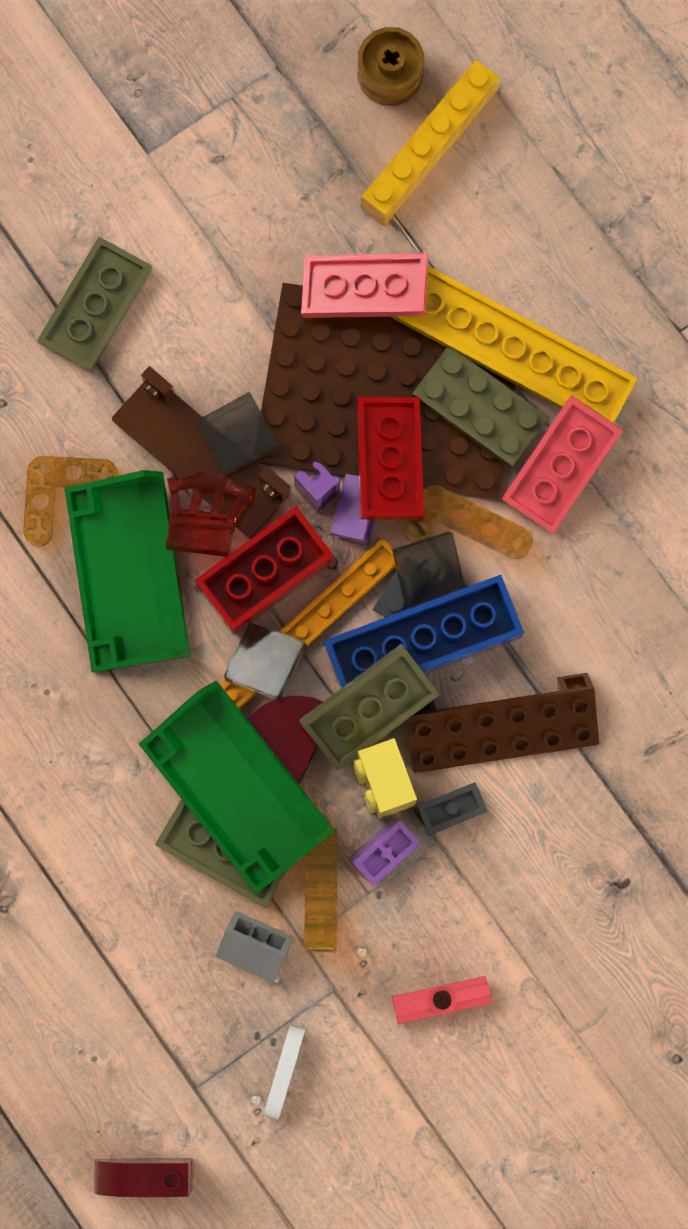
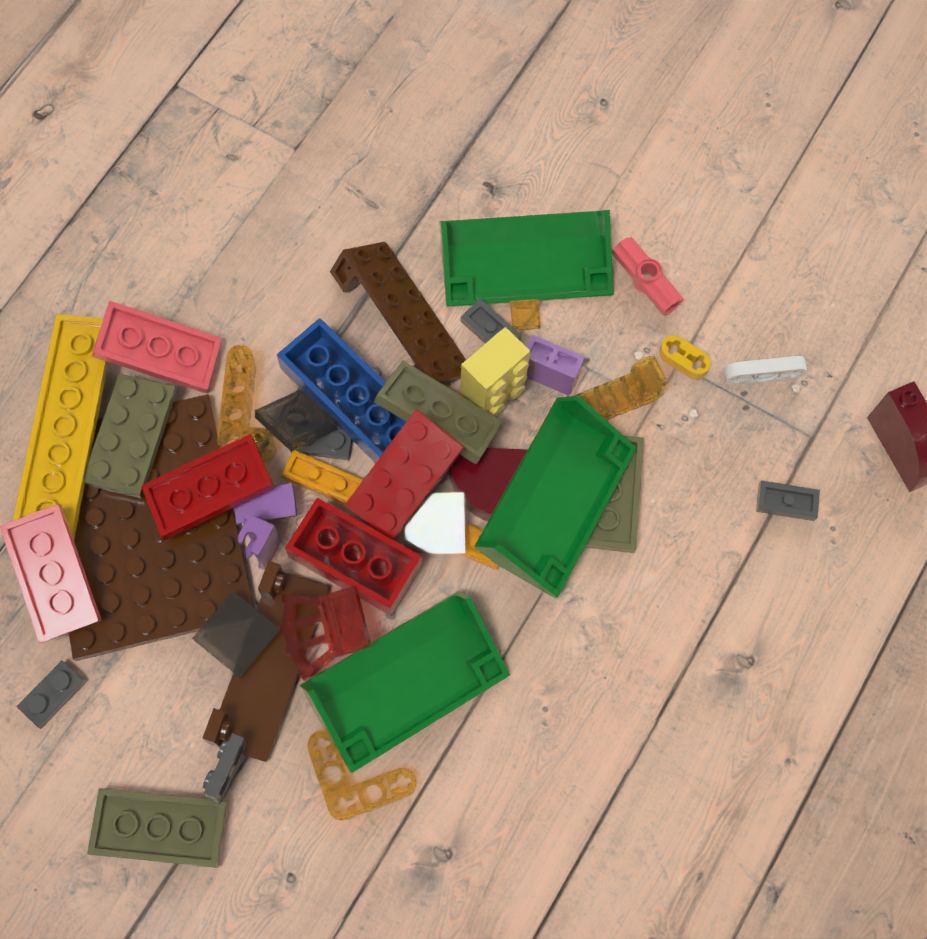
camera: 115 degrees left, 10 degrees down
(108, 367) = (217, 781): none -> dark grey plate
(138, 1023) = (788, 500): none -> dark grey plate
(244, 949) = (680, 431): light grey brick -> none
(259, 253) = (51, 694): none -> dark grey plate
(317, 646) = (405, 475): none -> red plate
(331, 990) = (684, 357): none -> yellow beam
(453, 852) = (525, 314): none -> clear yellow tile
(517, 882) = (527, 257): none -> green slope

